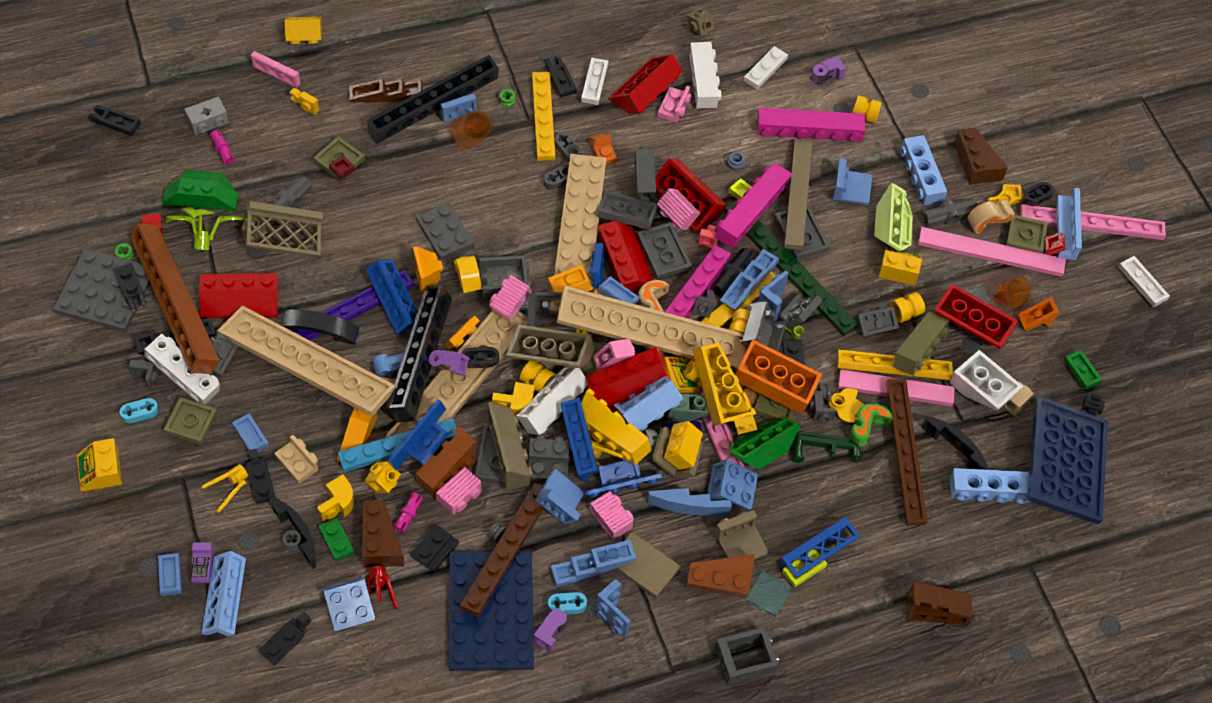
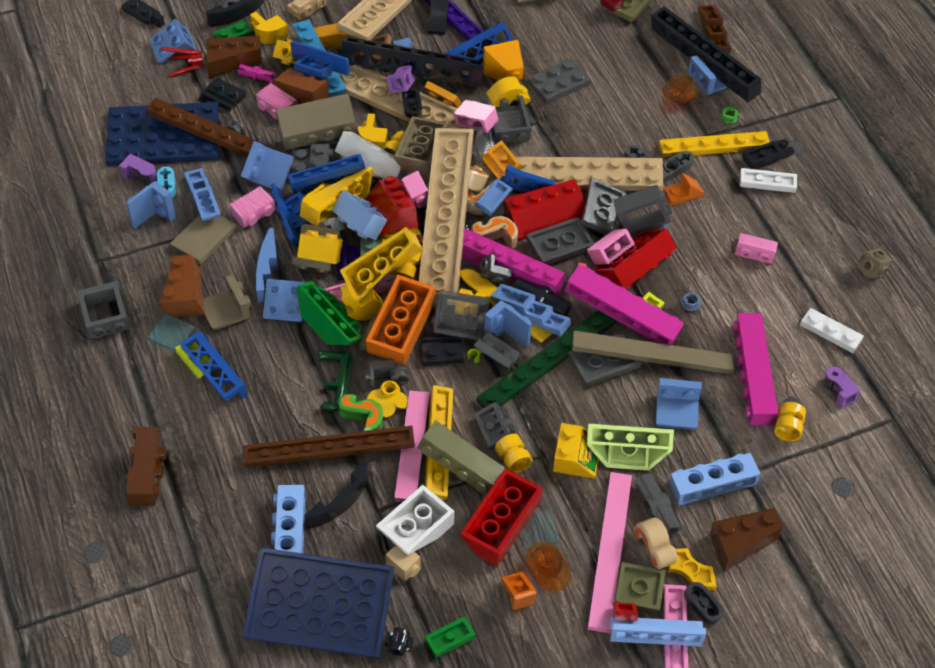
camera: 90 degrees right, 5 degrees down
(647, 84) = (773, 221): red slope -> none
(704, 75) = (799, 267): white brick -> none

